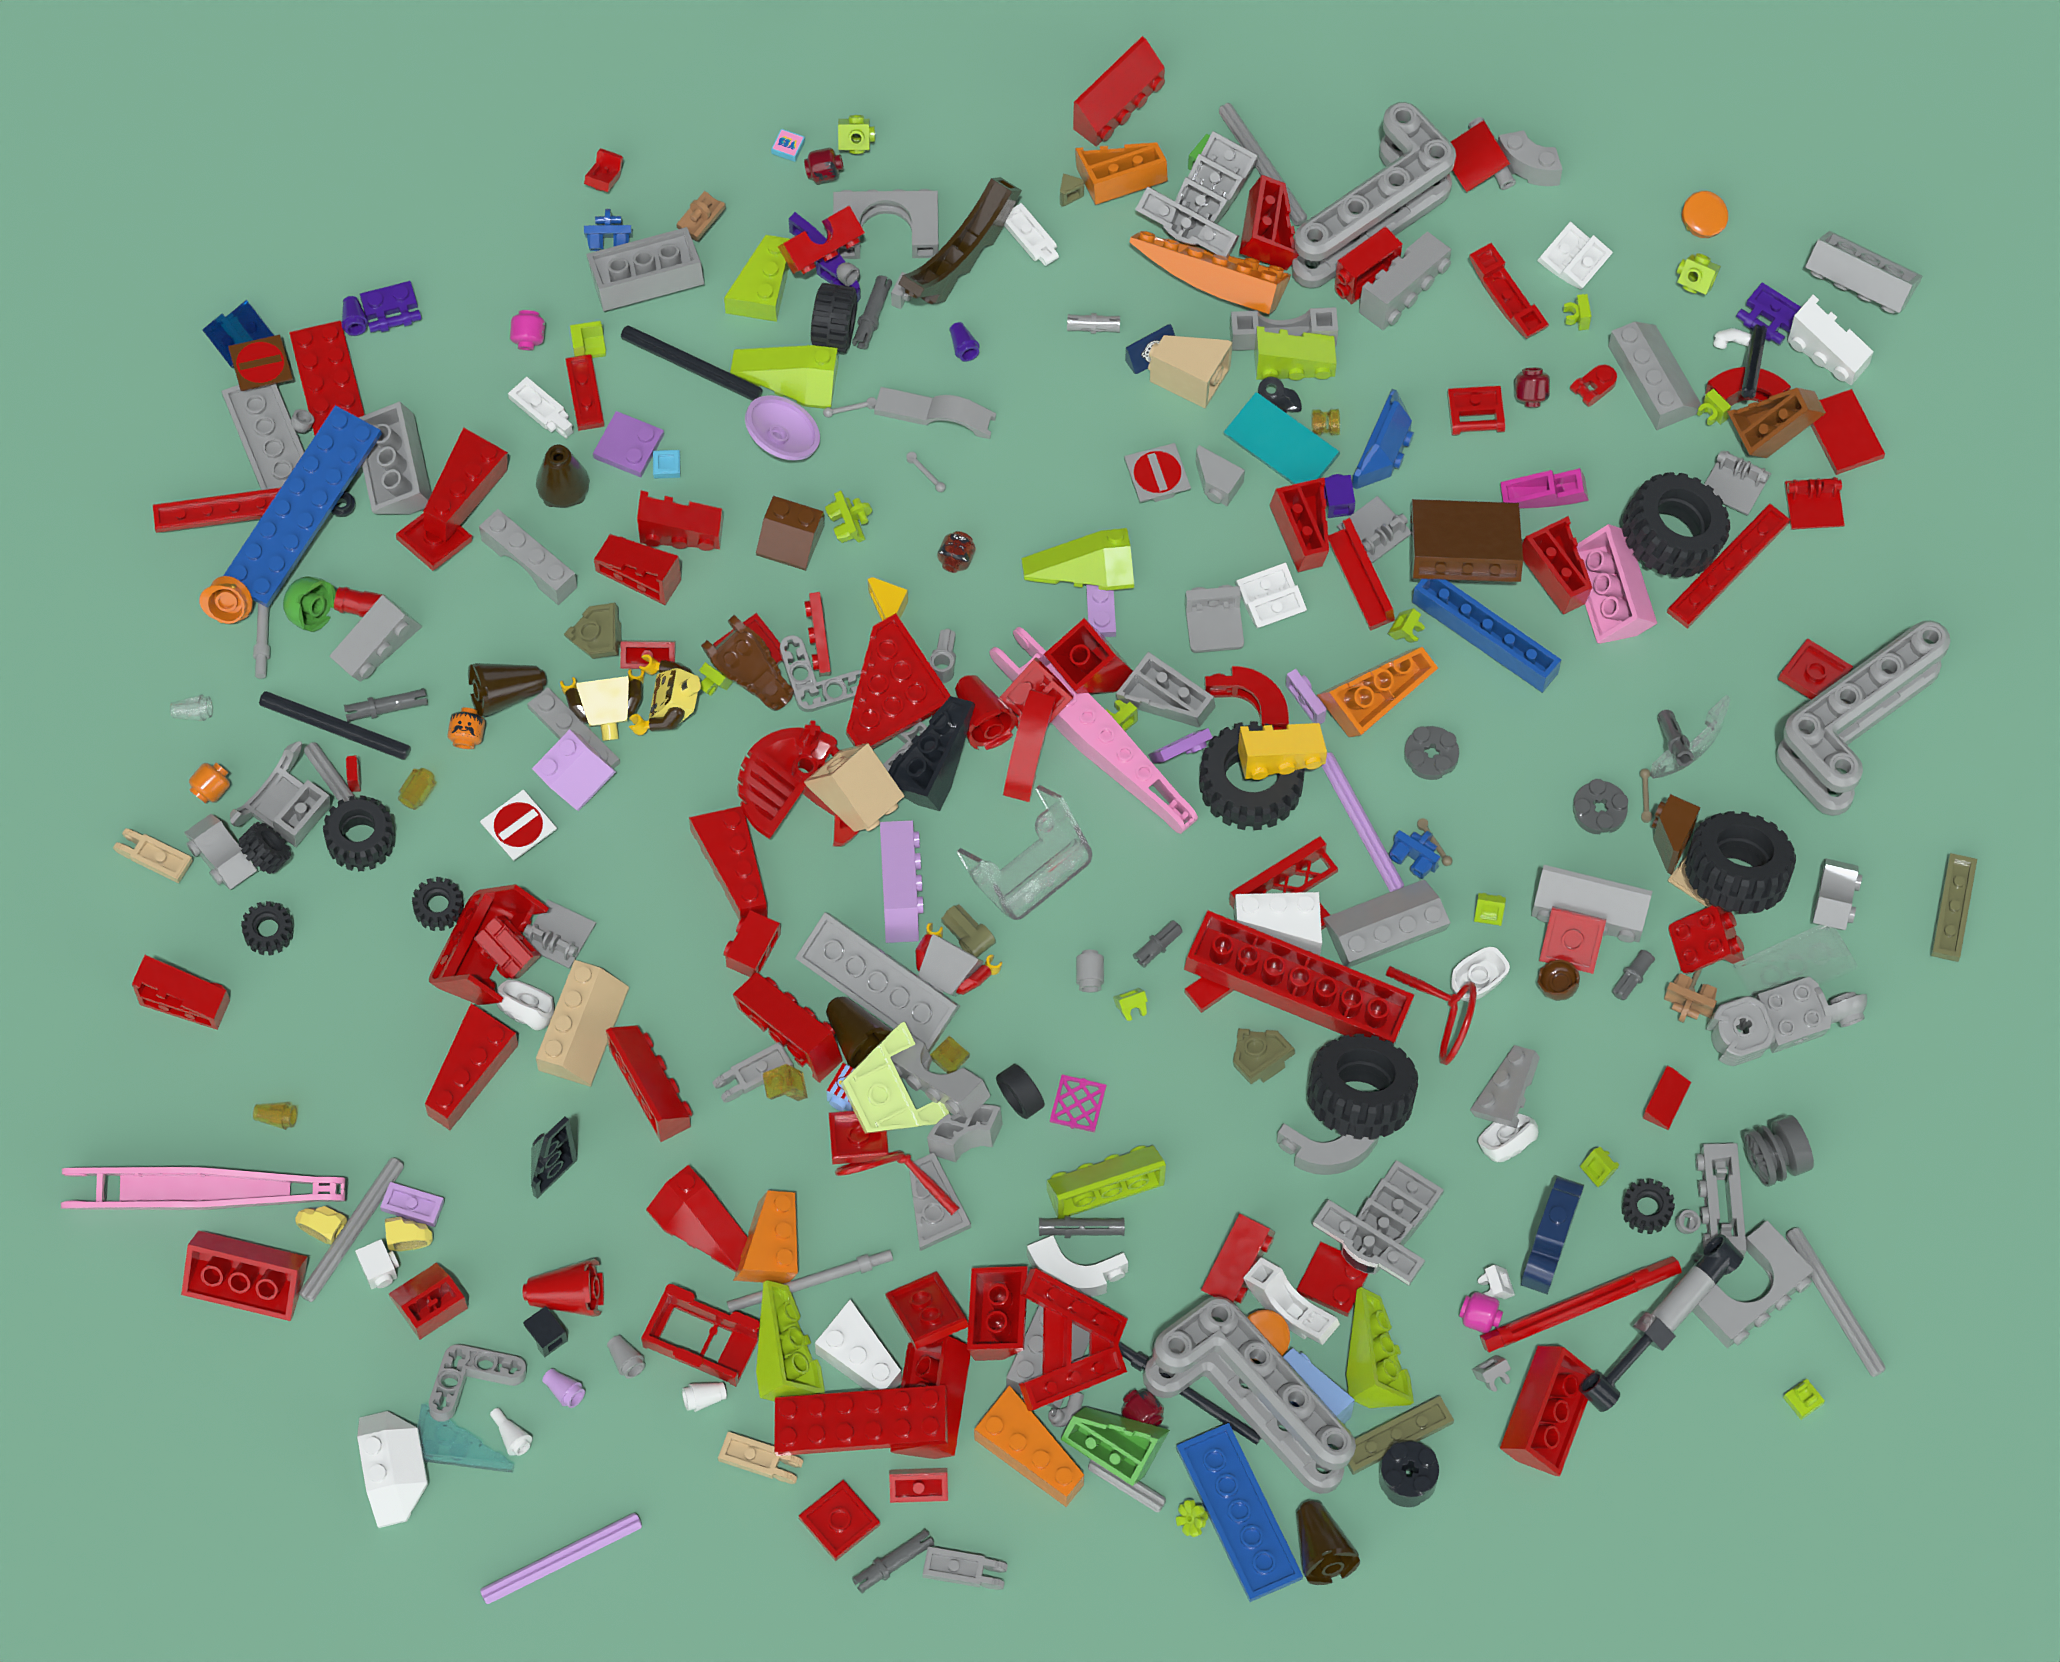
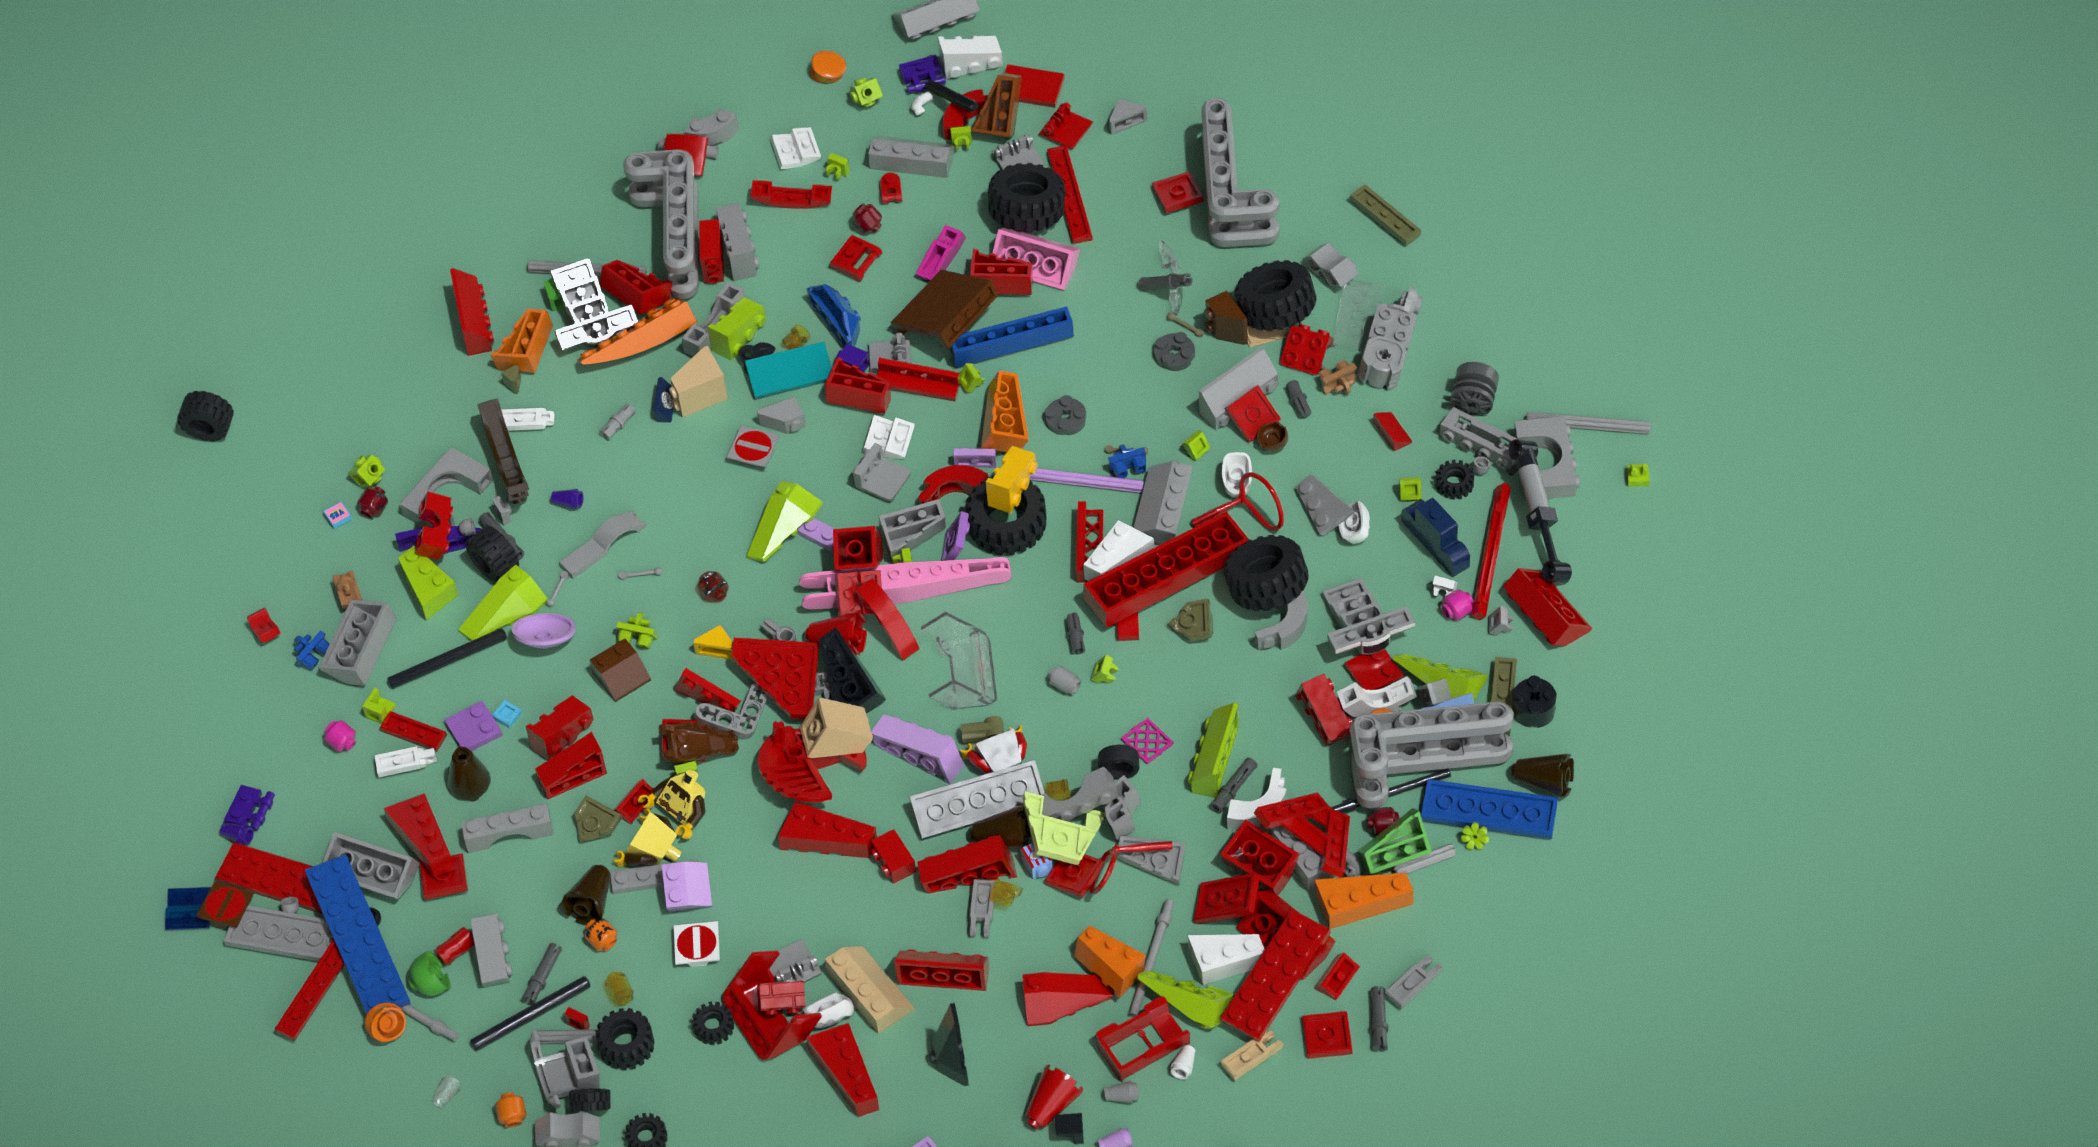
camera: 50 degrees left, 10 degrees down
(1339, 1361) = (1434, 692): none -> light grey slope
(1875, 553) = (1127, 115): none -> light grey slope

